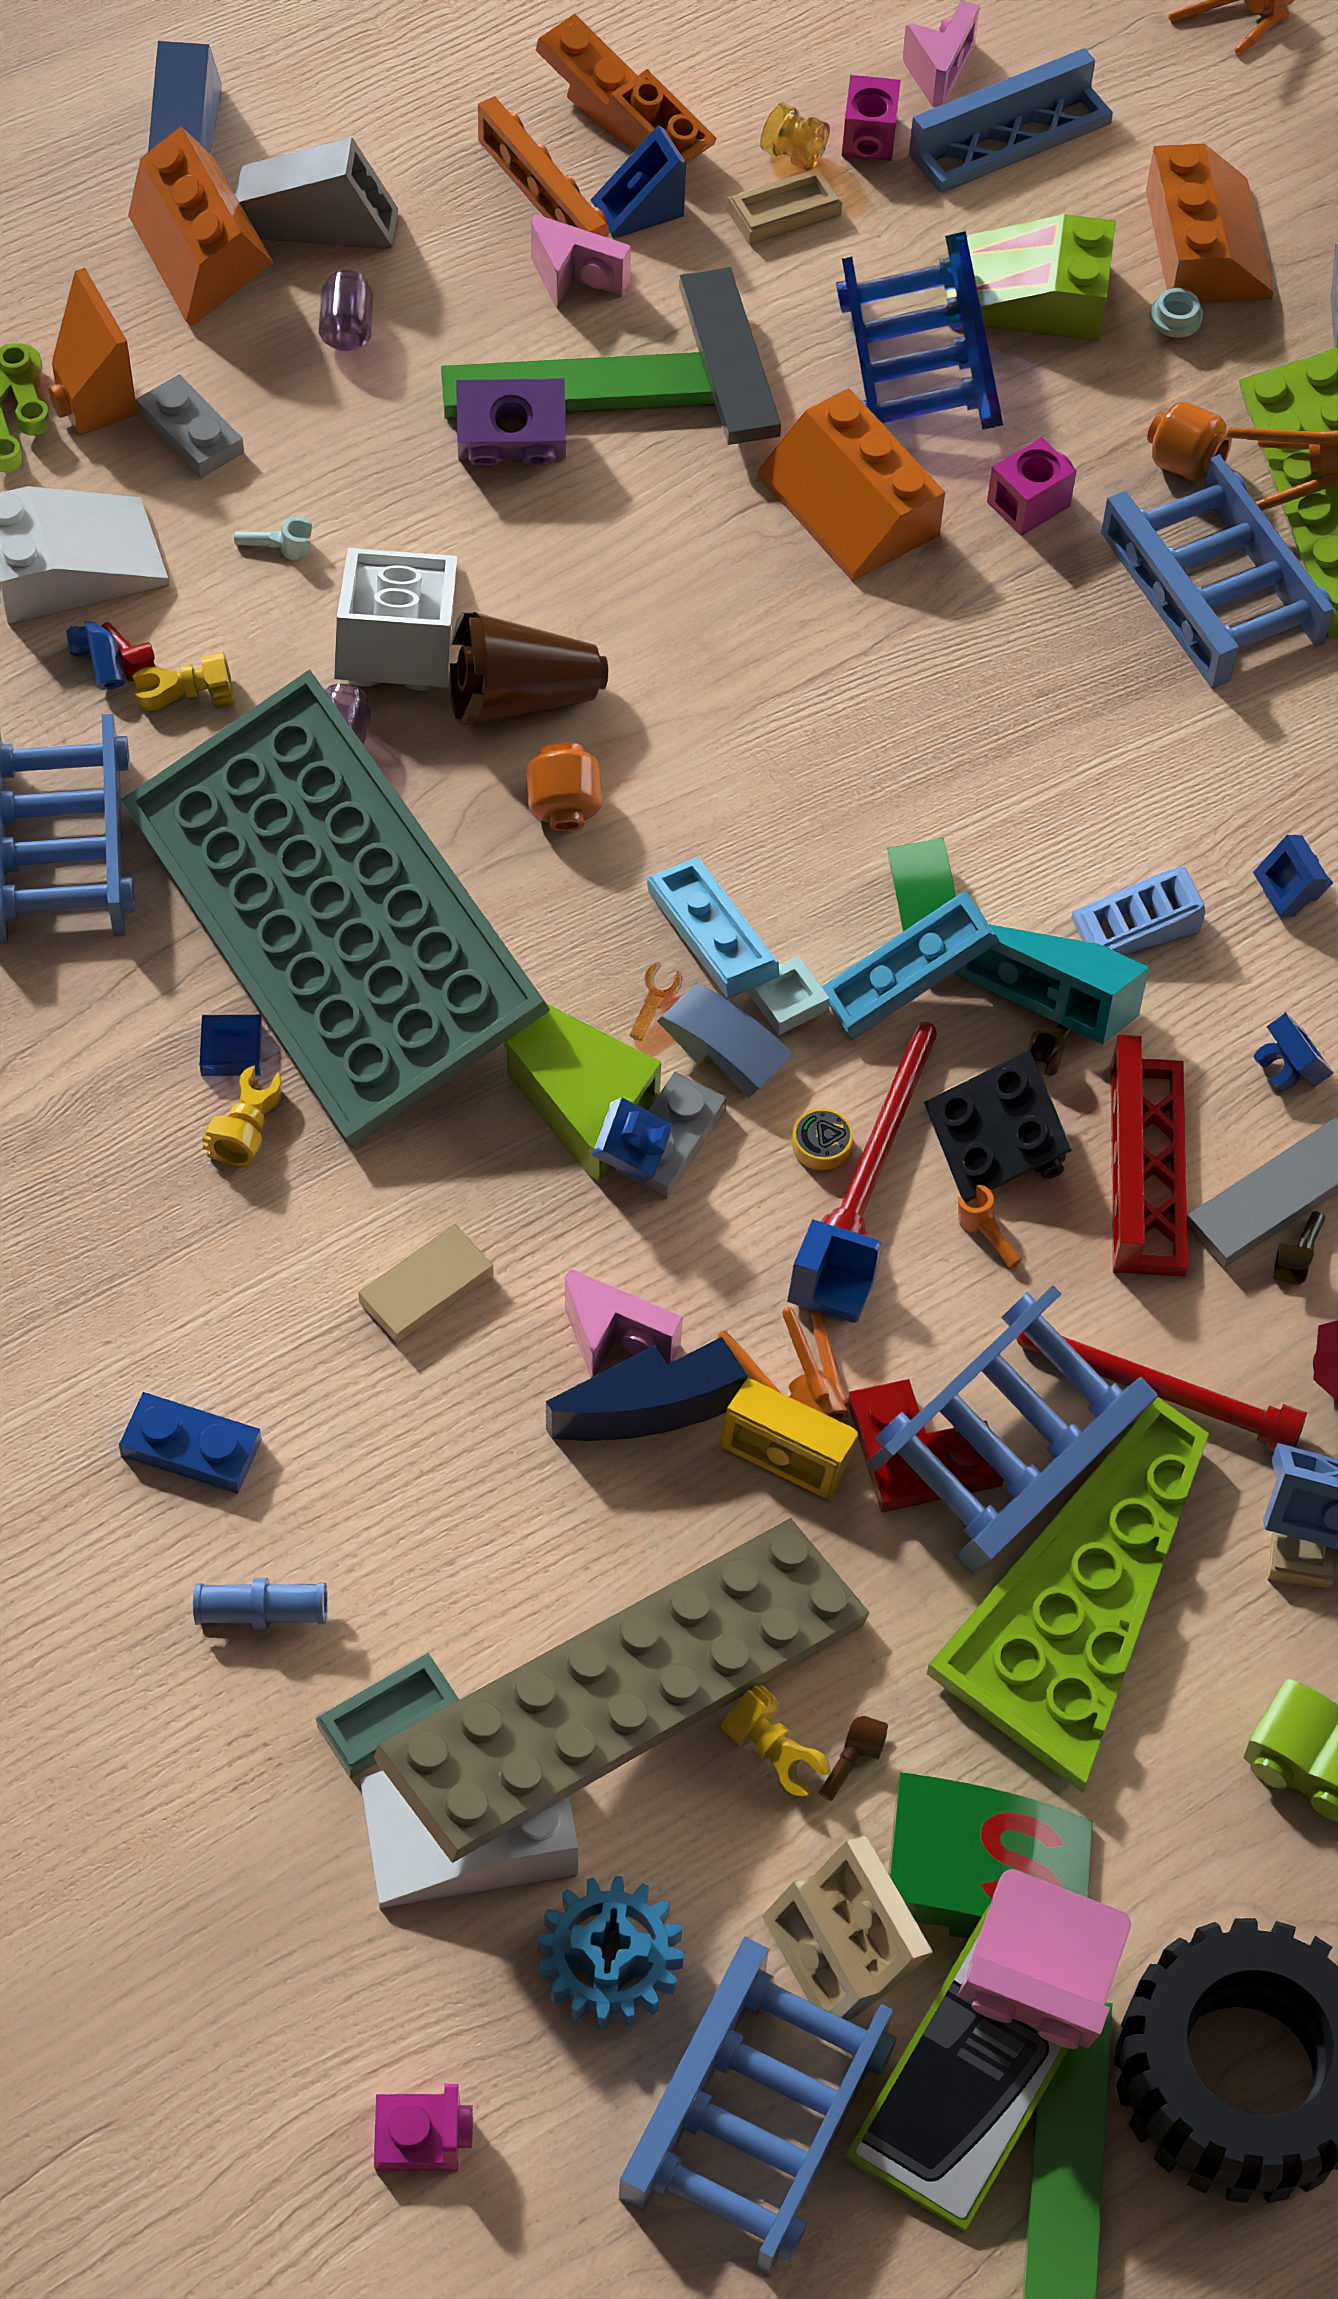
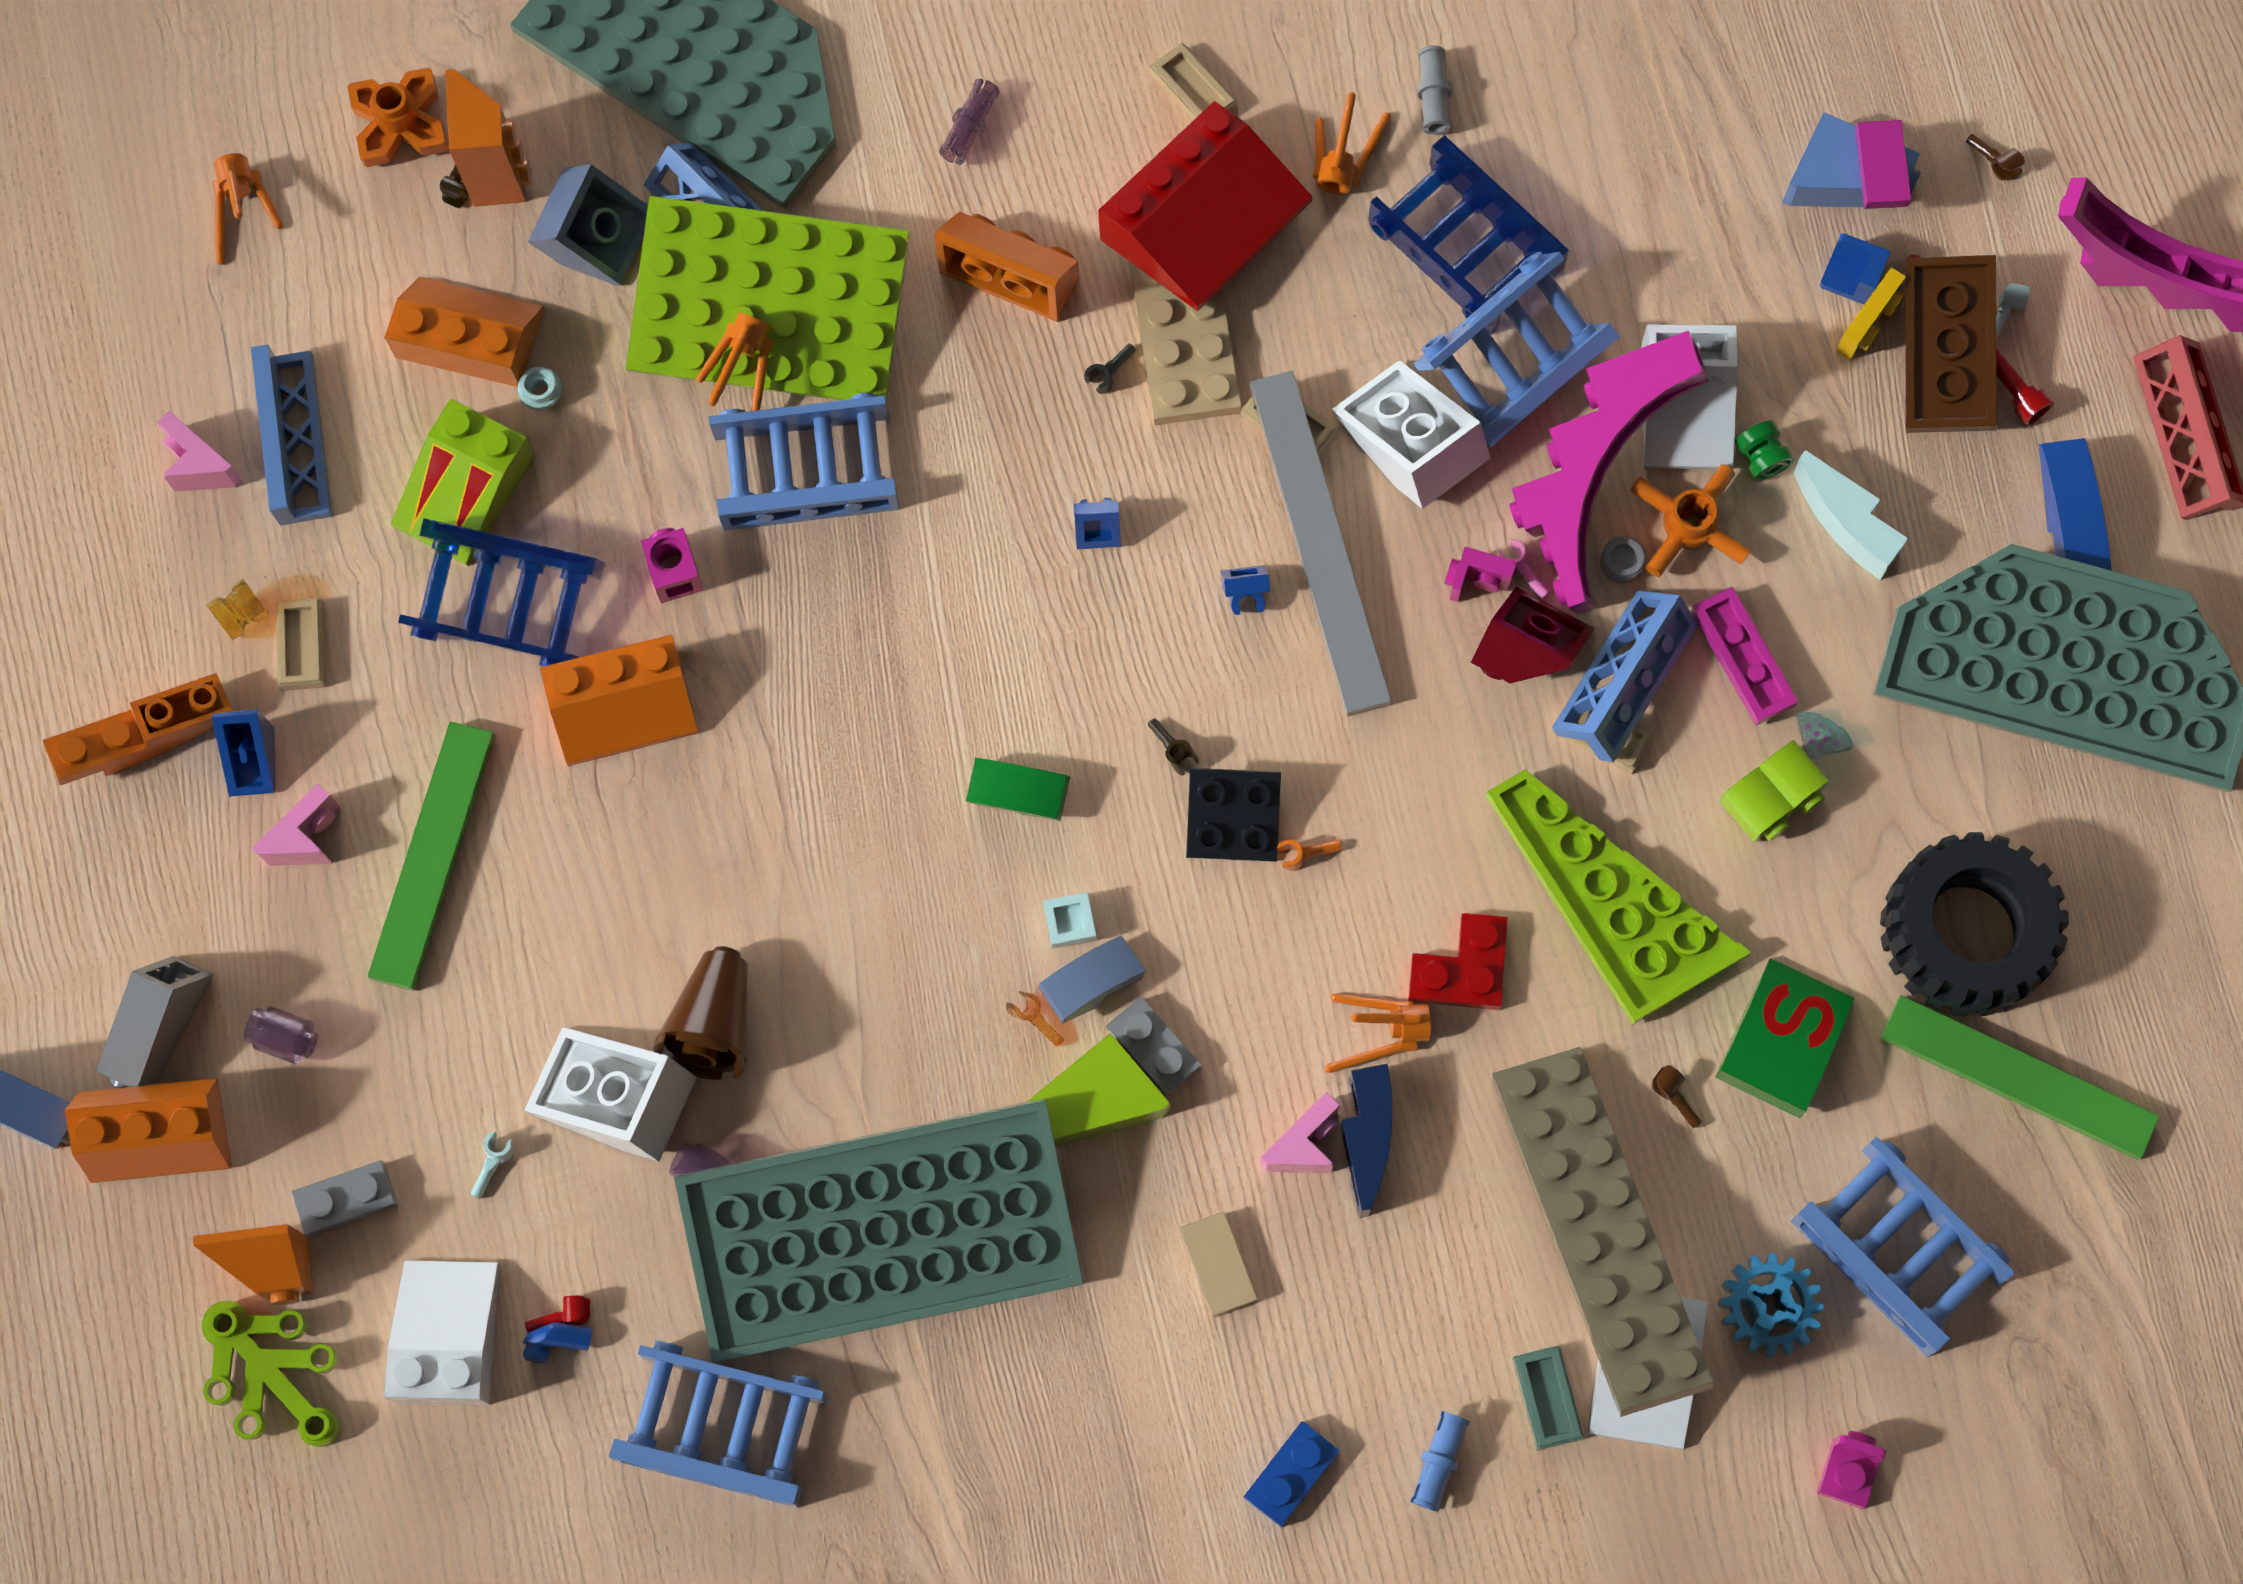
camera: 65 degrees left, 15 degrees up
(172, 684) = (611, 1275): yellow piece -> none
(230, 1044) = (962, 1344): clear blue tile -> none
(237, 1136) = (1051, 1364): yellow piece -> none
(487, 401) = (435, 958): medium lavender brick -> none
(533, 170) = (187, 832): orange plate -> none
(564, 786) = (826, 1019): orange head -> none
(632, 1139) = (1170, 1075): blue tile -> none
(713, 927) = (992, 953): medium azure tile -> none
(729, 356) = (453, 745): dark grey tile -> none
(751, 1722) = (1654, 1145): yellow piece -> none
(787, 1438) = (1434, 1052): yellow slope -> none
(822, 1139) = (1195, 940): tile -> none
(834, 1271) = (1313, 974): blue panel -> none
(847, 1931) = (1810, 1146): tan slope -> none
(863, 1182) = (1278, 953): red piece -> none
(871, 117) = (234, 527): dark pink brick -> none
(909, 964) = (1082, 824): medium azure tile -> none
(955, 2103) = (1923, 1098): slope -> none
(1027, 1485) = (1506, 863): medium blue fence -> none
(1046, 1959) = (1891, 1028): bright pink bracket -> none
(1062, 980) = (1131, 721): teal slope -> none
(1134, 1163) = (1289, 732): red fence -> none
(1154, 892) = (1088, 608): light blue slope -> none
(1187, 440) = (676, 431): orange head -> none
(1272, 1426) = (1531, 720): red piece -> none
(1294, 1261) = (1407, 653): dark brown hand -> none

